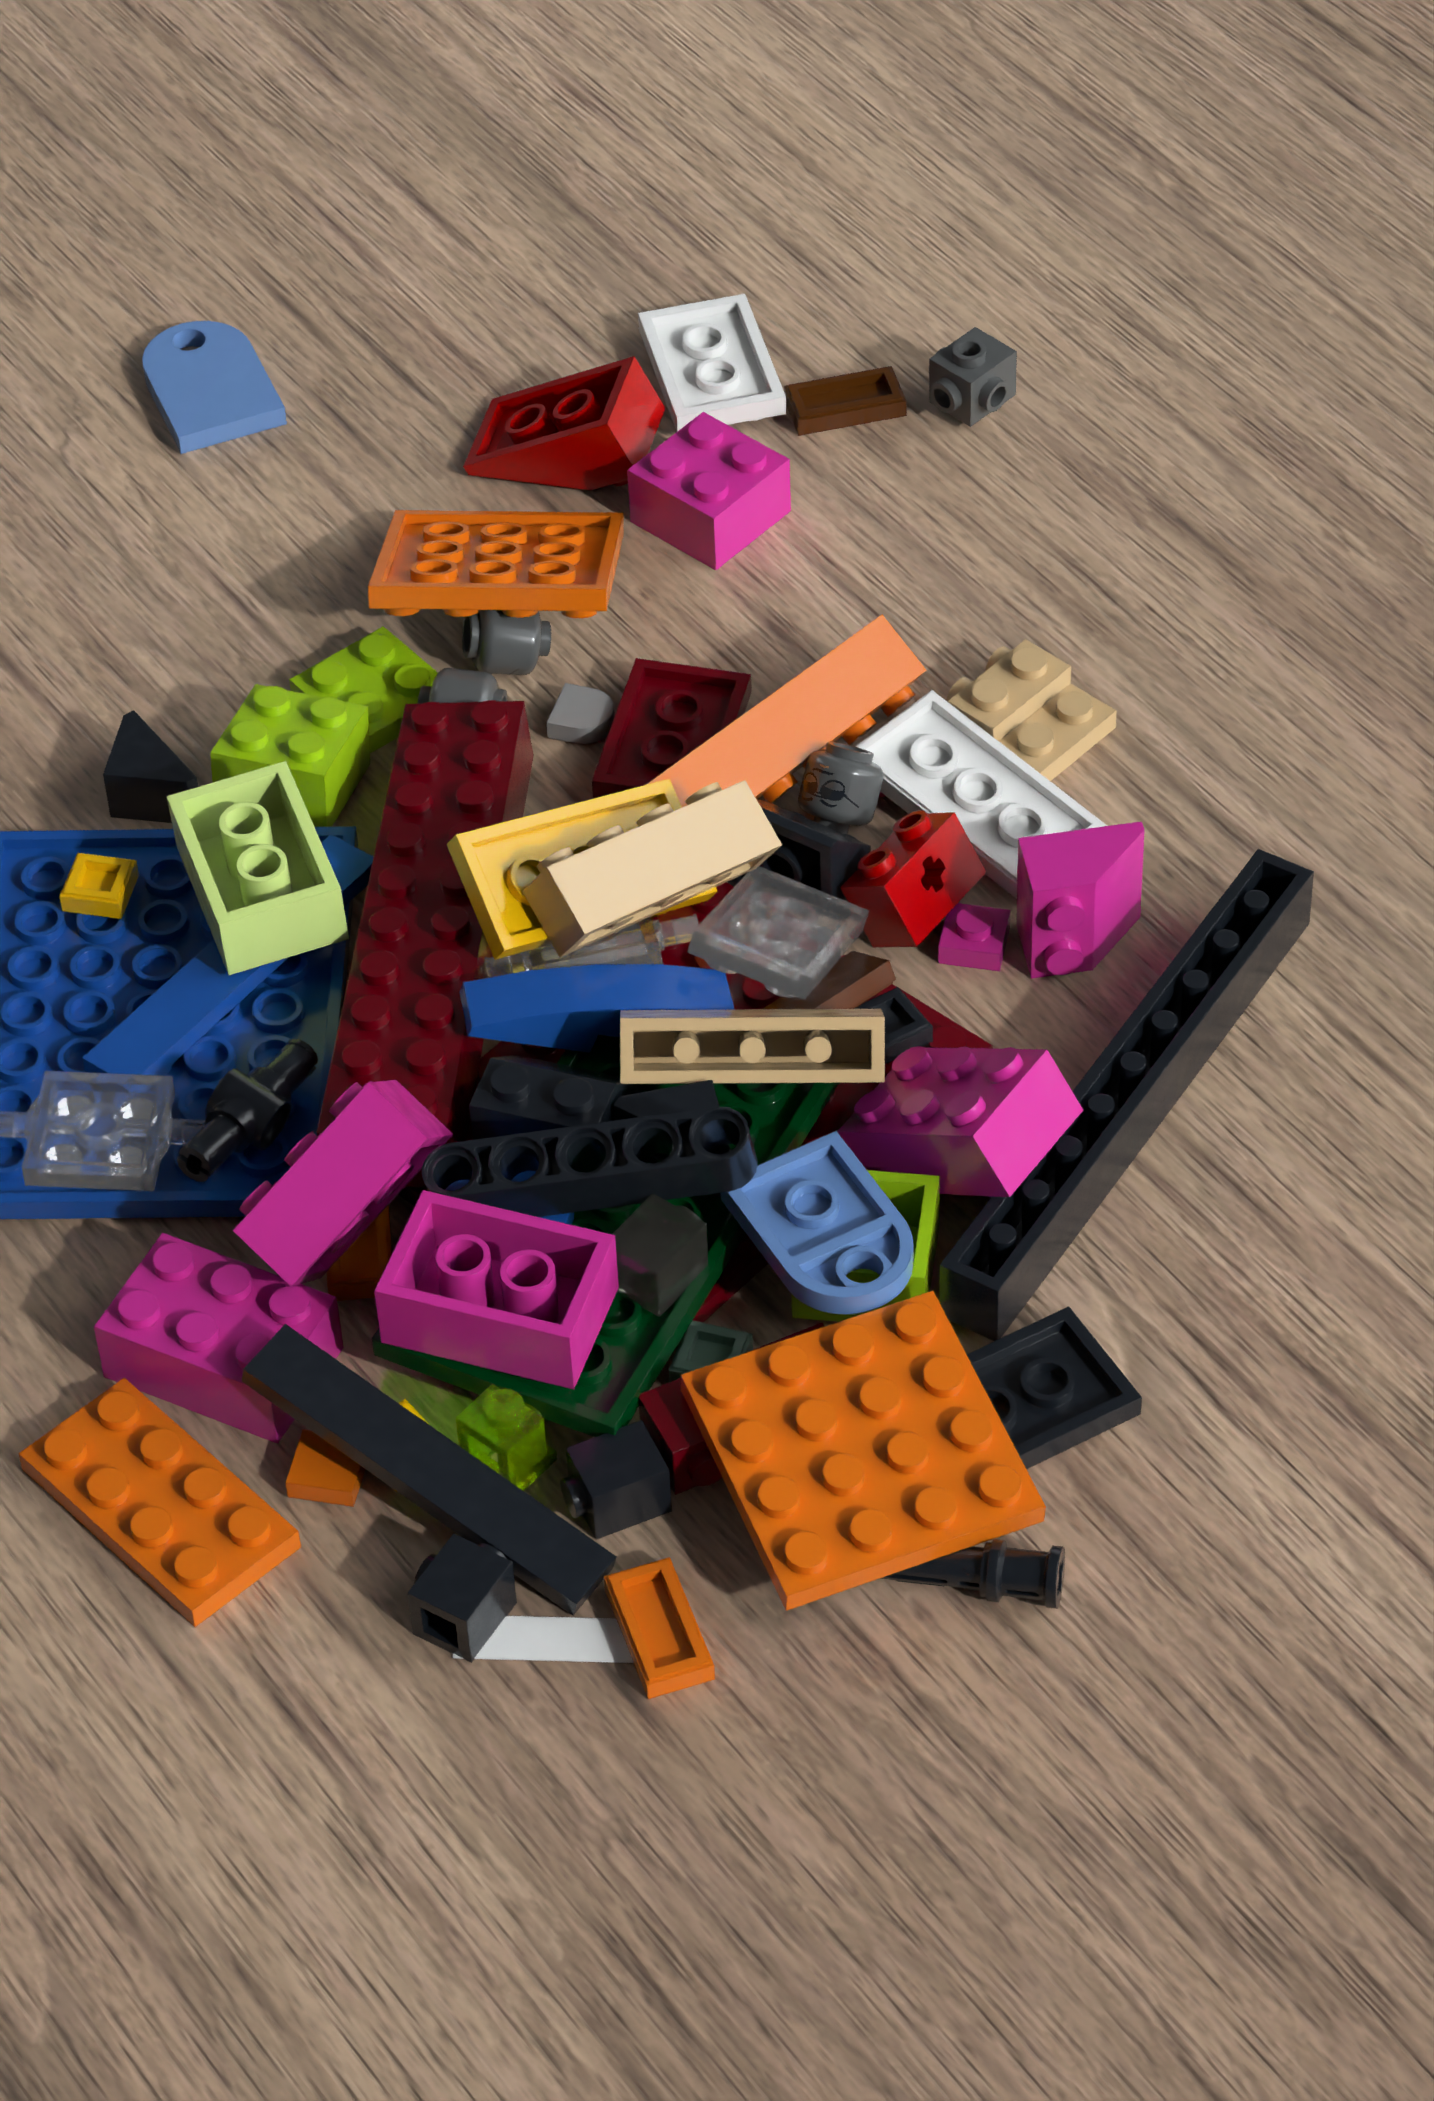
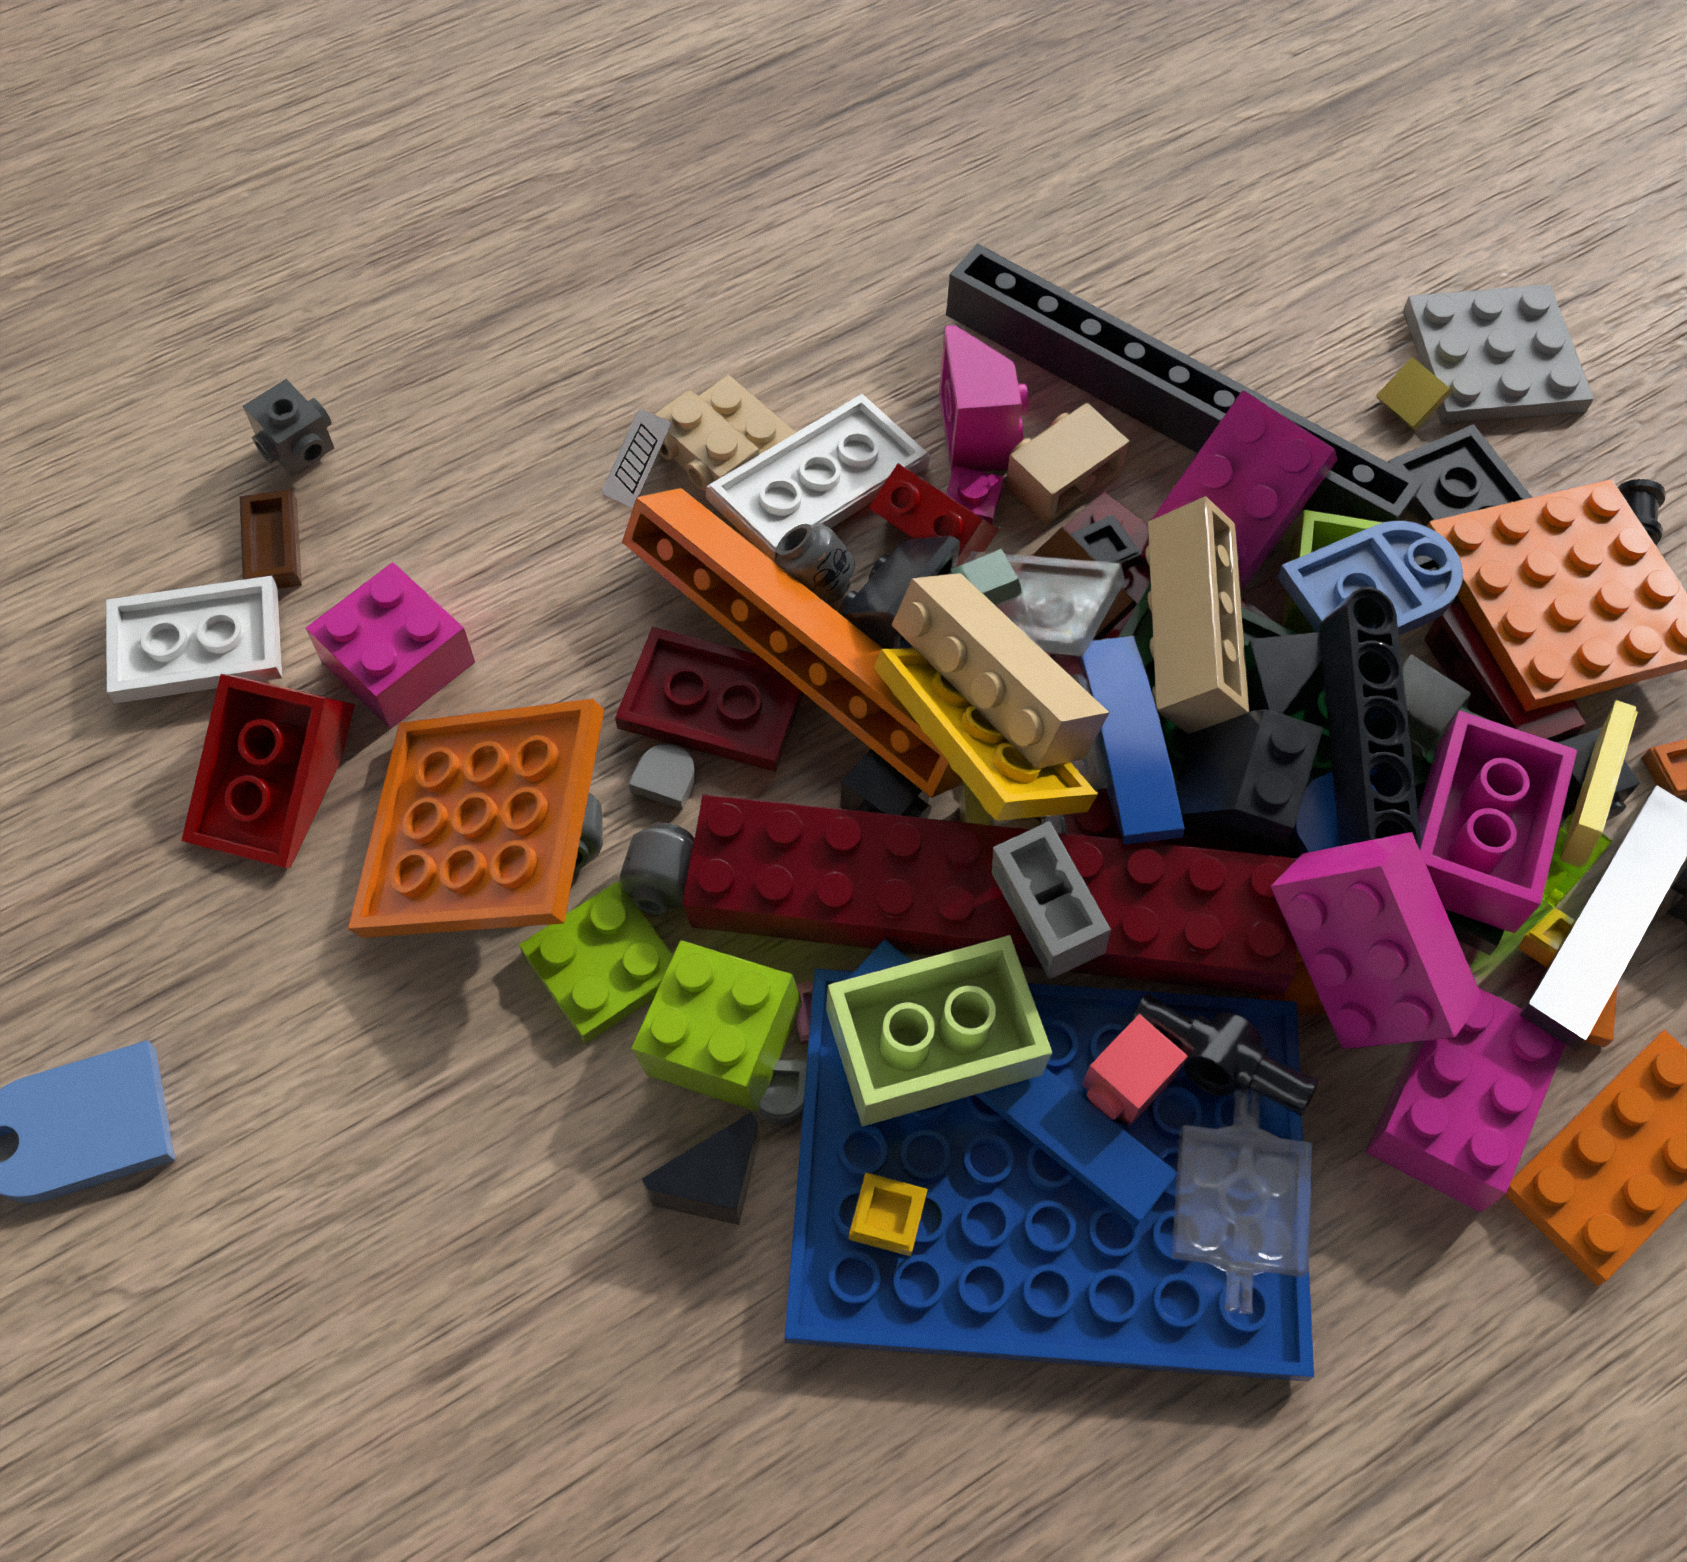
camera: 90 degrees left, 15 degrees up
(228, 1035) = (1132, 1071): none -> coral brick
(371, 903) = (1050, 900): none -> light grey brick
(559, 1405) = (1599, 785): none -> light yellow tile
(798, 892) = (992, 576): none -> tile
(977, 643) = (636, 457): none -> white sticker
(1023, 1000) = (1066, 462): none -> tan brick
(1192, 1347) = (1414, 394): none -> light yellow tile
(1294, 1456) = (1498, 353): none -> light grey plate

